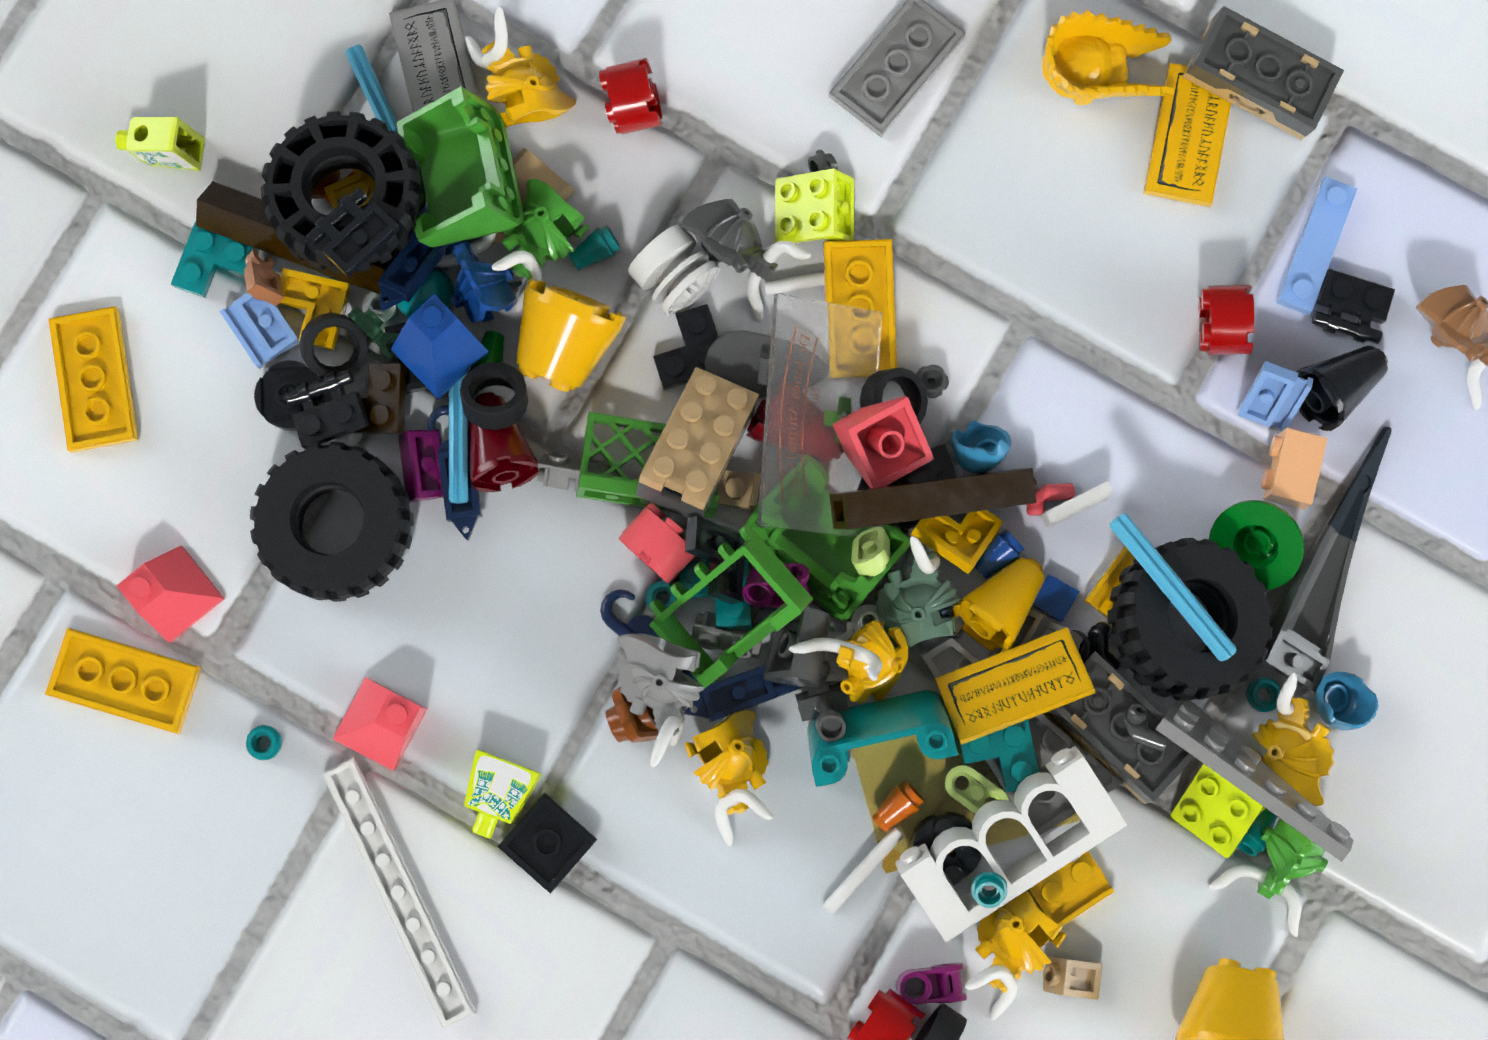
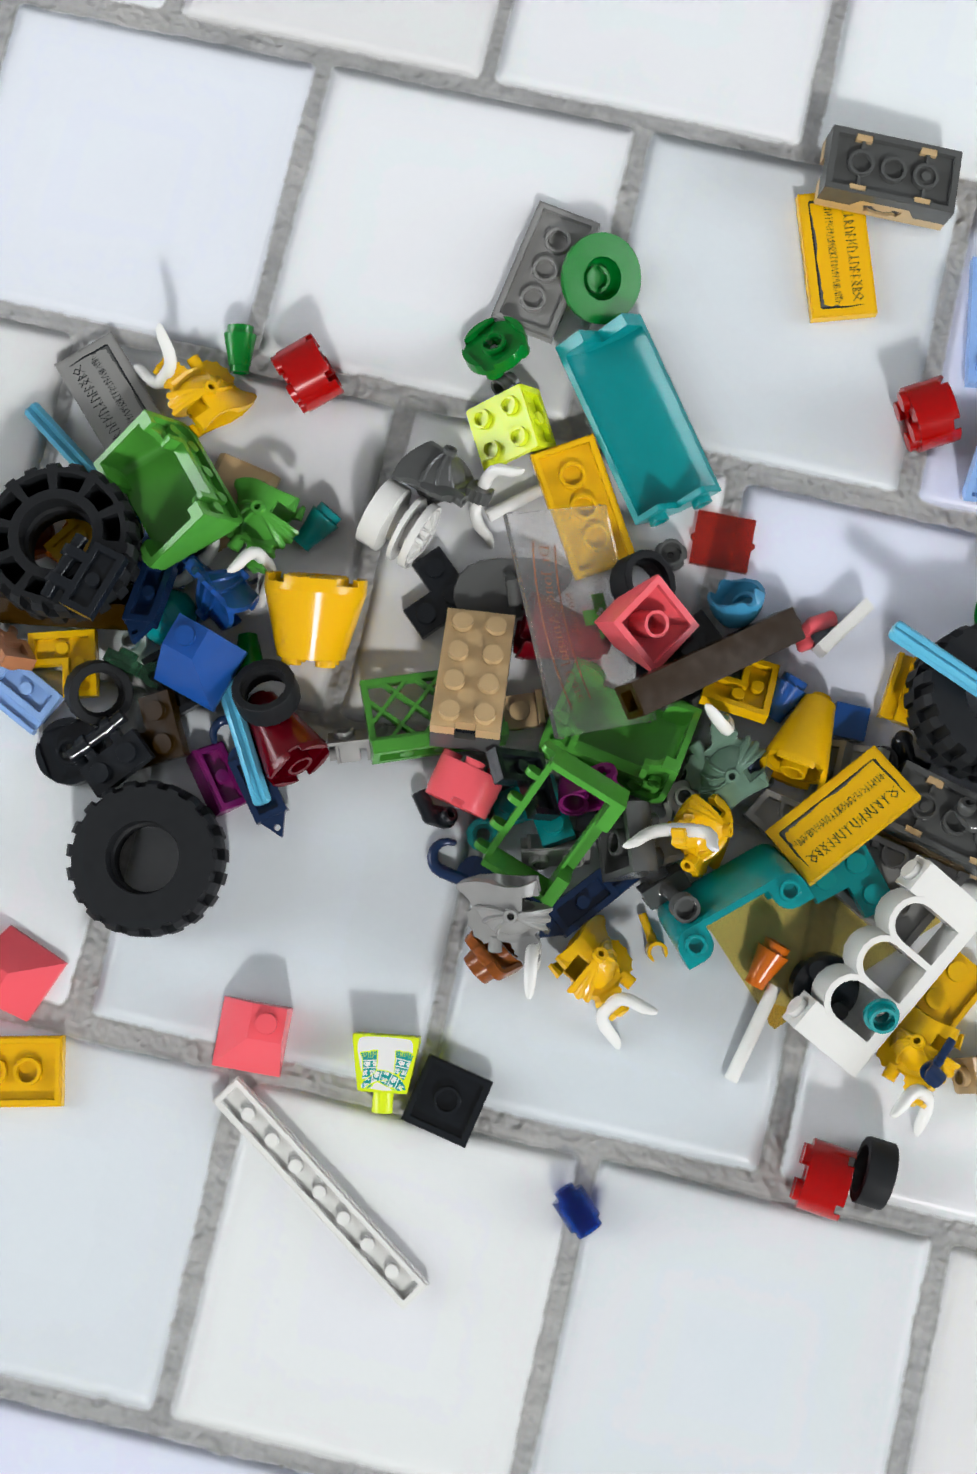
camera: 15 degrees left, 0 degrees up
(253, 740) = (137, 1093): teal plate -> none
(574, 49) = (240, 347): none -> green cone
(620, 563) = (434, 814): none -> black arm
(639, 986) = (577, 1210): none -> clear blue brick
(794, 747) = (651, 937): none -> yellow hand
(817, 139) = (510, 349): none -> green plate
(871, 551) = (667, 730): yellowish green plate -> none
(935, 984) = (858, 1119): magenta piece -> none
(941, 239) = (638, 420): none -> teal cylinder
(948, 88) = (600, 277): none -> green hat
(977, 791) = (835, 924): yellowish green plate -> none
(987, 383) = (722, 542): none -> clear red piece
(1020, 957) = (931, 1070): none -> dark blue hand
(1089, 56) = (722, 208): yellow piece -> none

